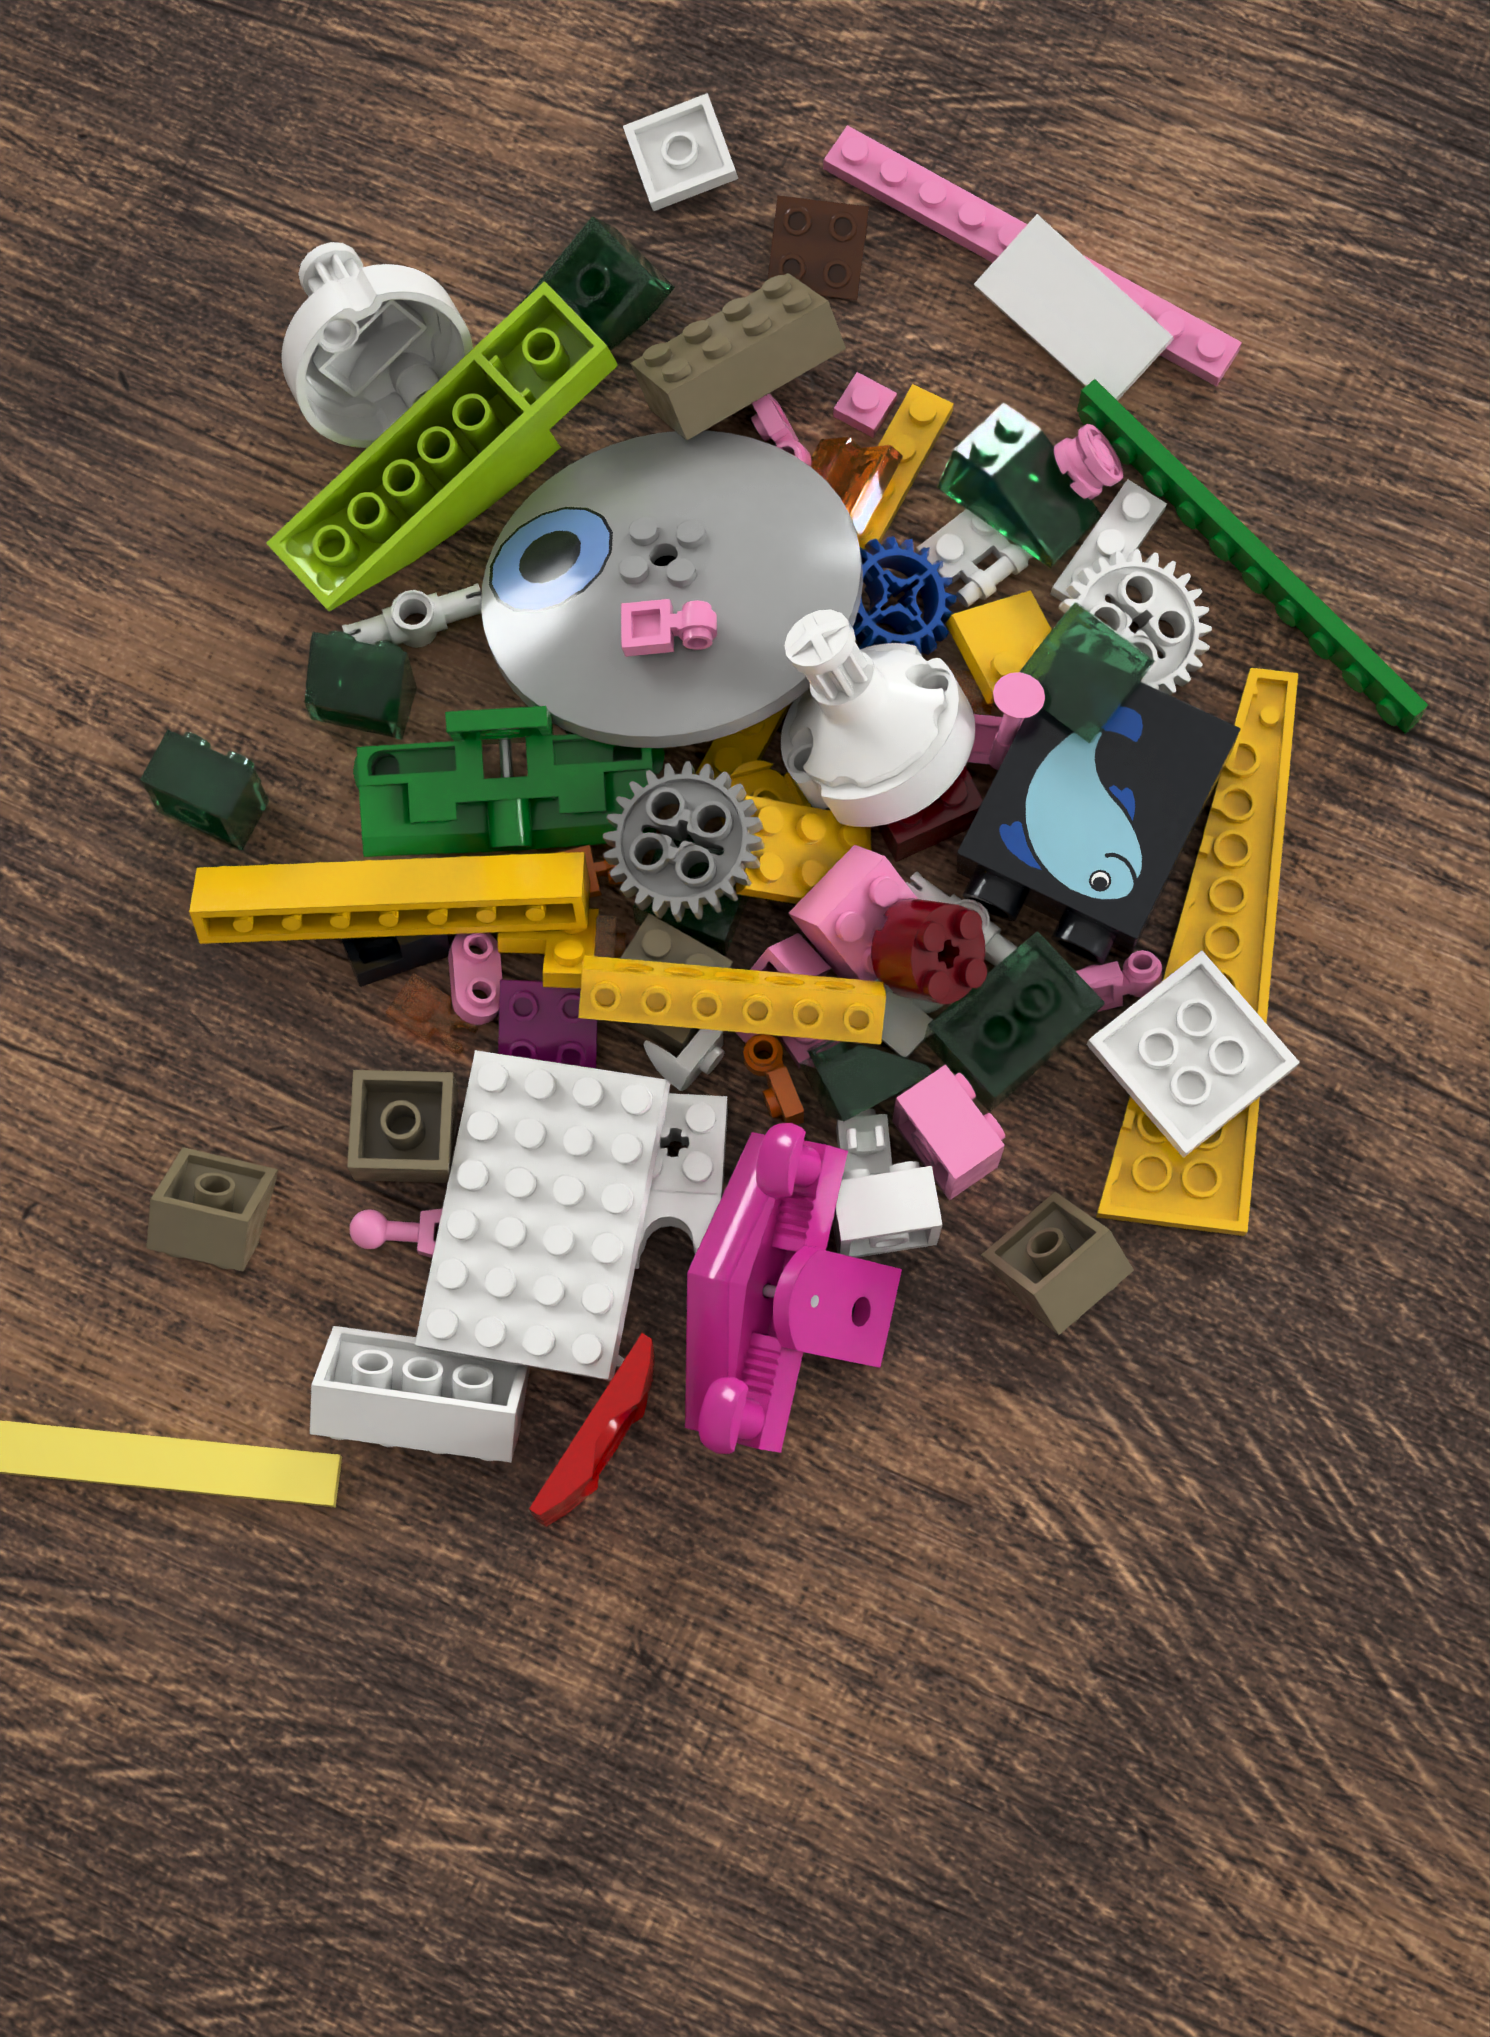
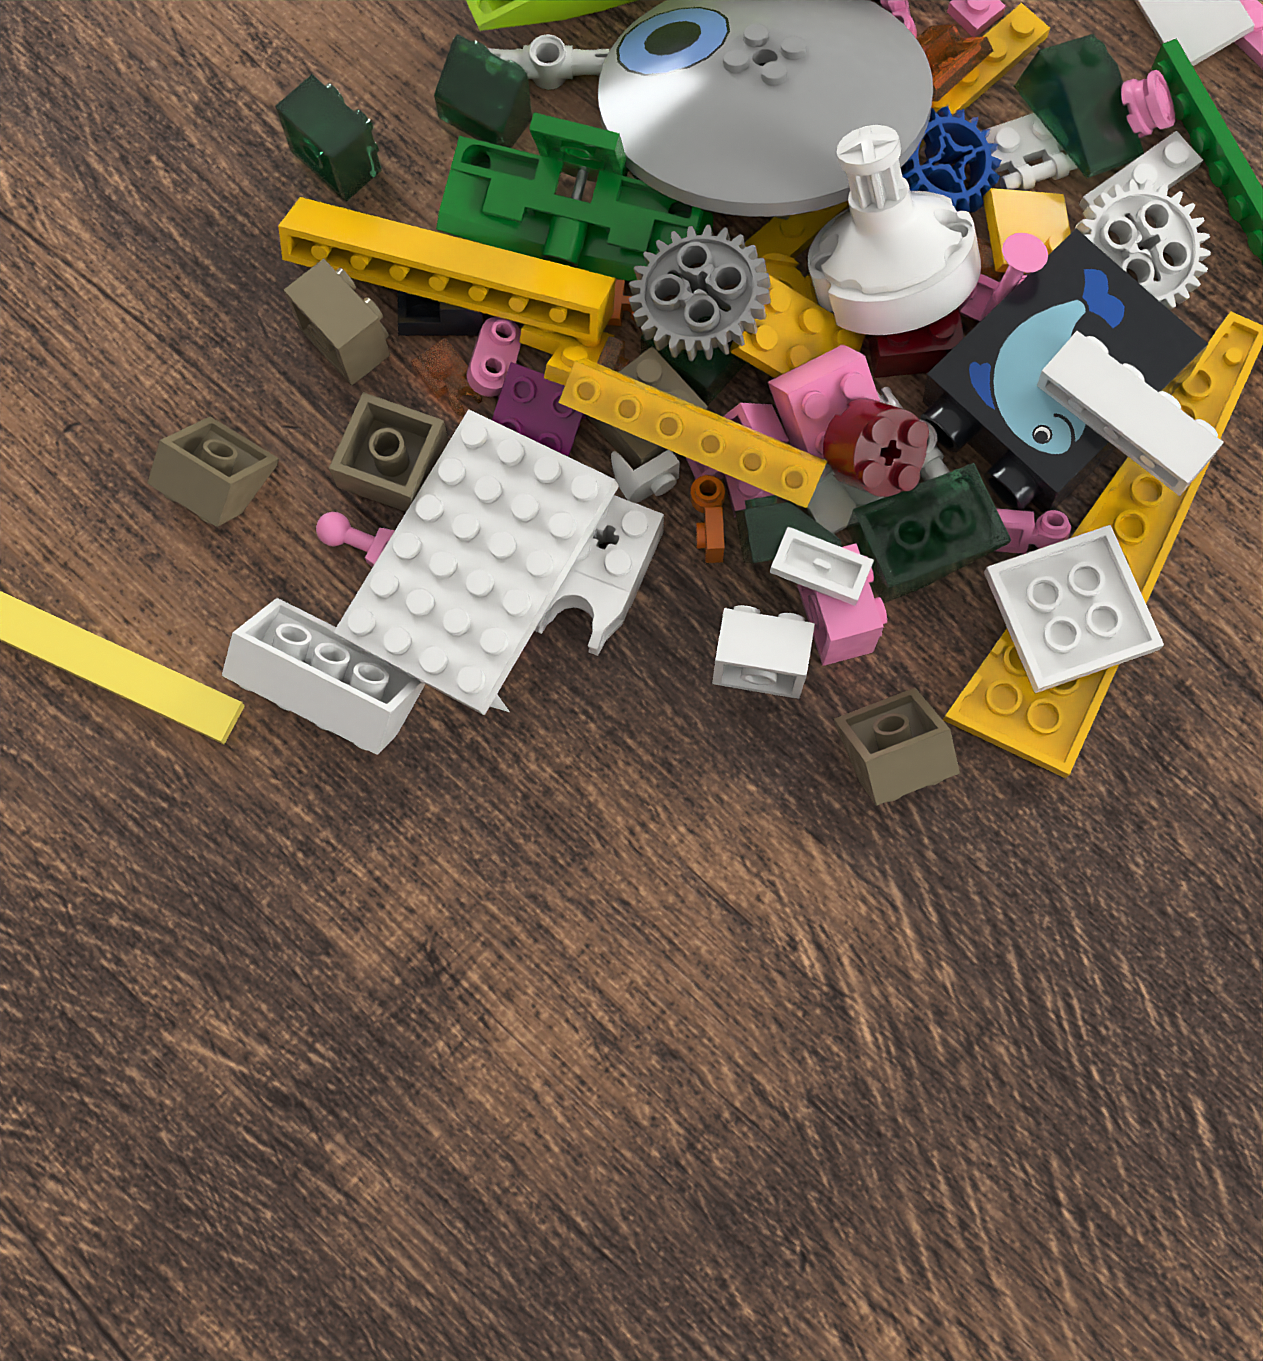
camera: 20 degrees right, 0 degrees up
(293, 996) = (338, 320): none -> dark tan brick
(599, 1436) = (456, 756): red slope -> none
(651, 626) = (734, 103): bright pink plate -> none
(772, 1291) = (645, 684): dark pink piece -> none
(866, 1142) = (765, 590): white brick -> none
(919, 1103) = (821, 566): none -> white plate
(1086, 671) = (1090, 254): clear green slope -> none
(1184, 832) = (1129, 412): none -> white brick

